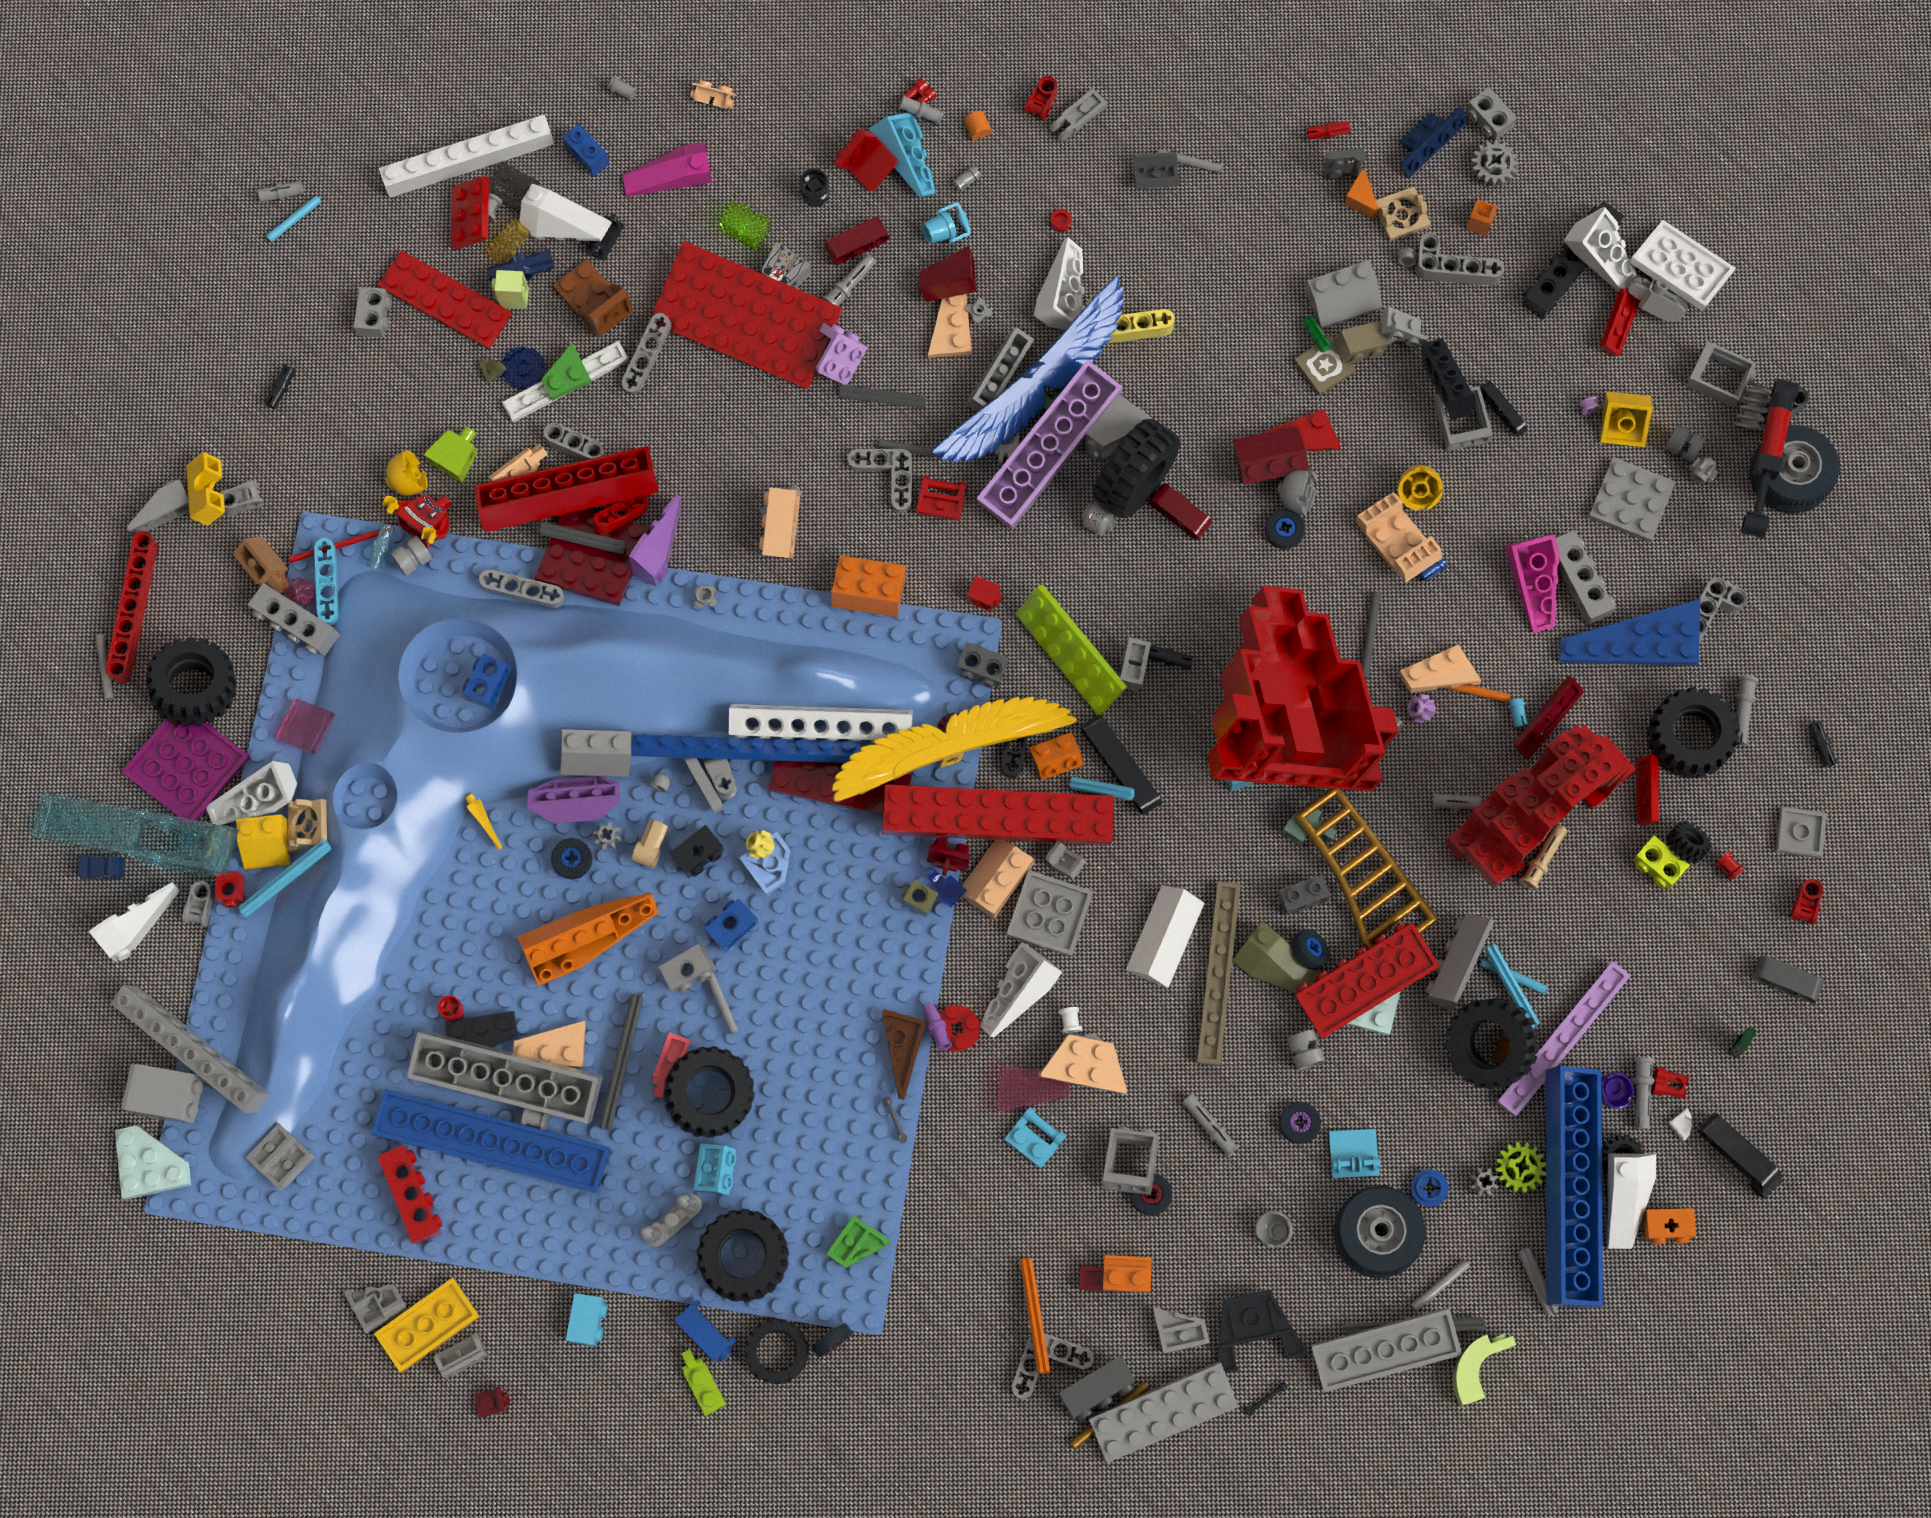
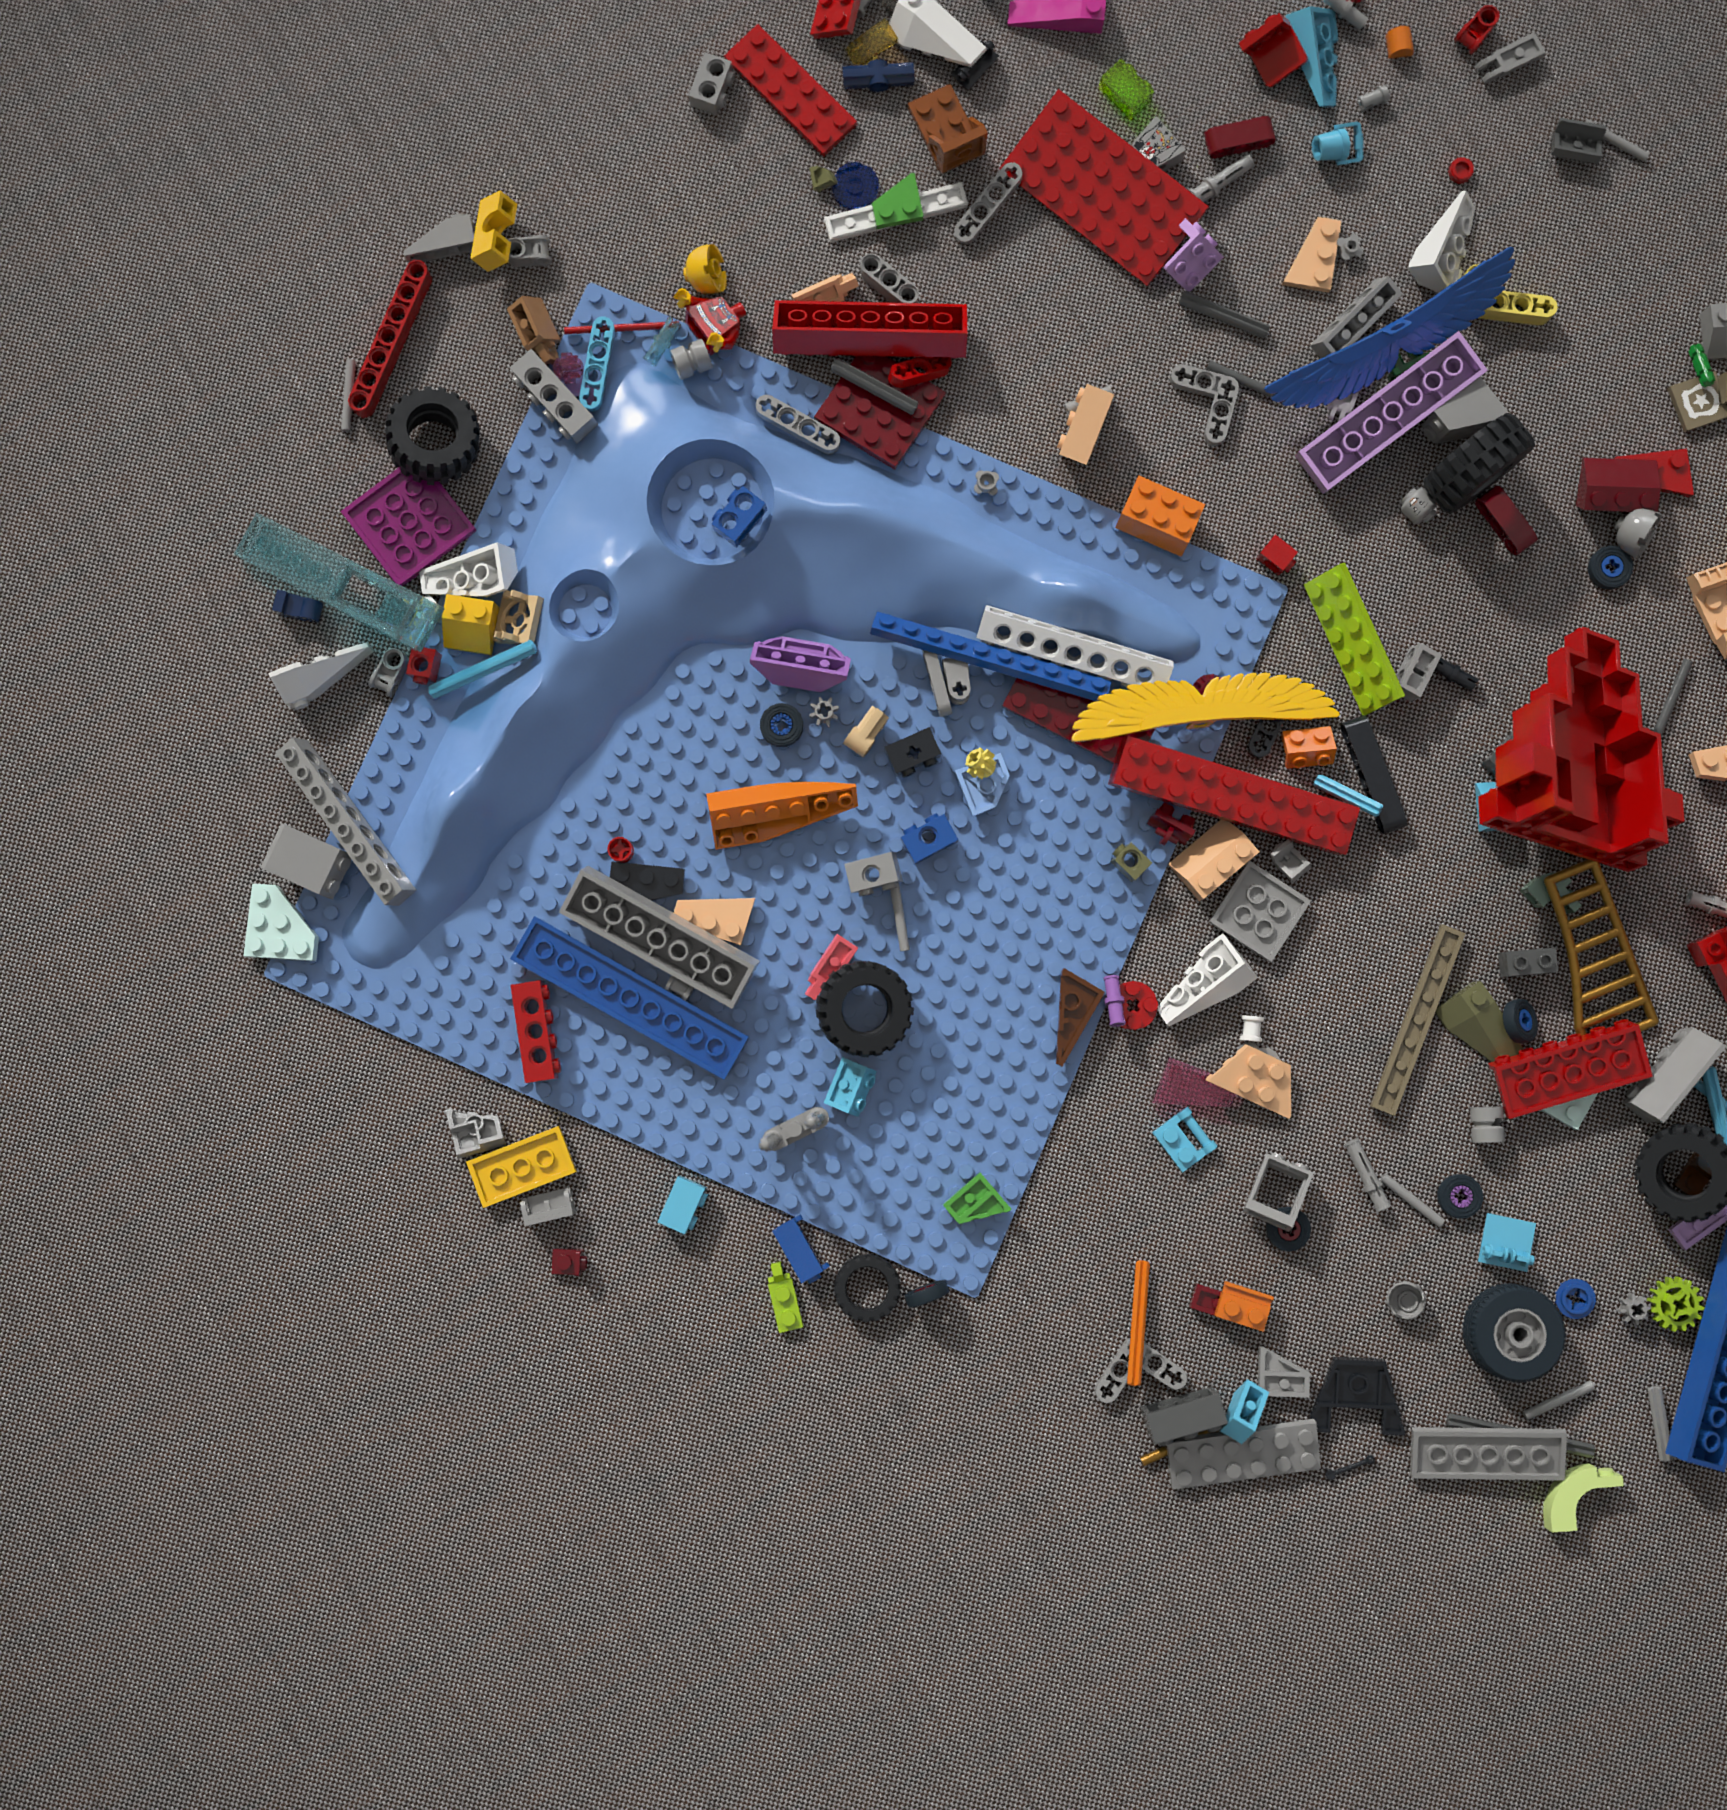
camera: 15 degrees right, 10 degrees up
(280, 387) = (596, 140): black pin -> none
(280, 1157) = (412, 957): light grey slope -> none
(304, 726) = (539, 512): clear pink tile -> none
(453, 453) = (760, 260): lime torso -> none
(477, 810) = (697, 650): yellow piece -> none
(511, 289) = (863, 95): yellowish green brick -> none
(595, 752) = (833, 620): light grey slope -> none
(621, 1062) = (781, 950): dark grey axle -> none
(652, 552) = (943, 421): medium lavender wedge -> none
(660, 782) = (892, 669): light grey hinge -> none
(710, 1255) = (868, 1218): black tyre -> none
(814, 187) = (1210, 66): black wheel -> none
(902, 1138) = (1049, 1104): dark grey hinge -> none
(940, 504) = (1256, 447): red plate -> none
(949, 277) = (1328, 202): dark red slope -> none
(949, 890) = (1162, 859): clear blue plate -> none
(984, 659) = (1260, 626): dark grey brick -> none
(1151, 1369) = (1244, 1411): none -> medium azure brick
(1165, 935) = (1372, 965): white slope -> none
(1258, 1138) = (1412, 1200): none -> light grey bar
(1421, 708) = (1704, 797): lavender gear -> none

